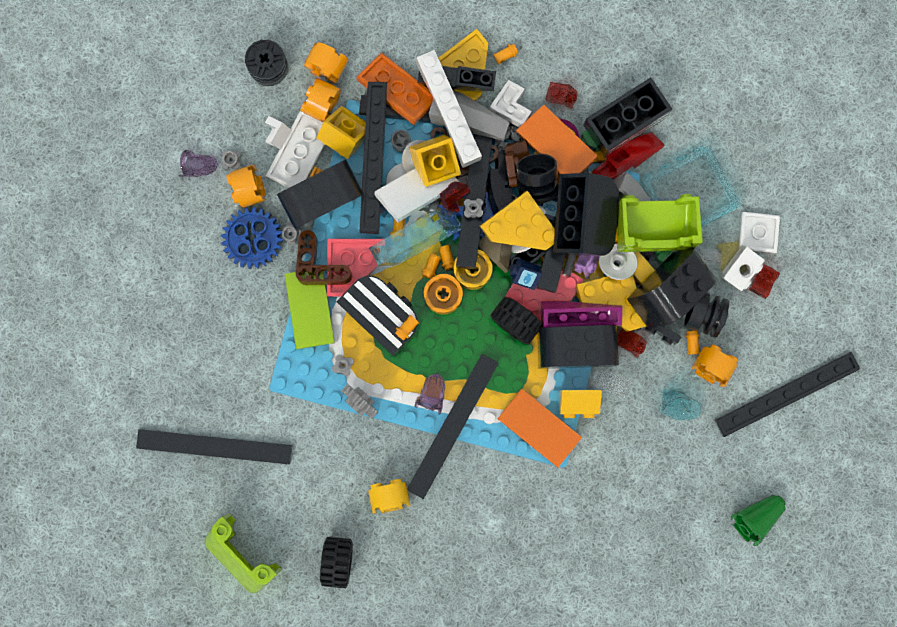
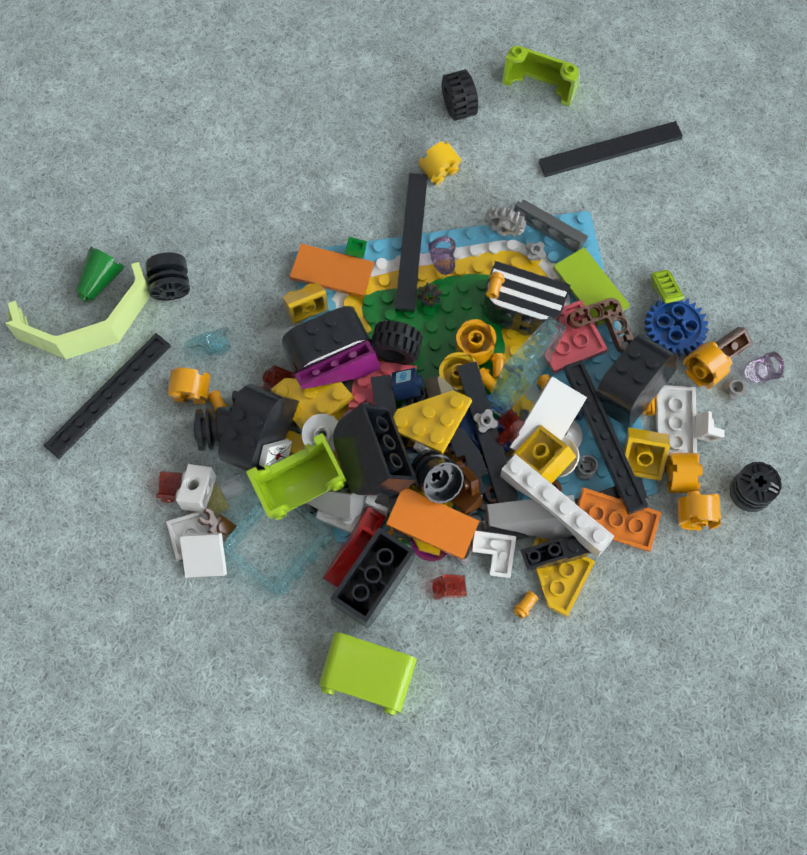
camera: 155 degrees right, 15 degrees down
(211, 202) = (734, 342): none -> reddish brown slope
(241, 288) = (664, 284): none -> lime slope
(315, 385) = (551, 226): none -> dark grey fence
(462, 360) = (434, 293): none -> black gear
(508, 440) = (355, 247): none -> green plate
(660, 51) = (367, 672): none -> lime windscreen
(666, 260) = (275, 452): none -> white tile
(695, 483) = (167, 276): none -> black wheel
(733, 227) = (217, 524): none -> plate
(757, 205) = (203, 555): none -> white tile
(847, 488) = (89, 337): none -> yellowish green panel

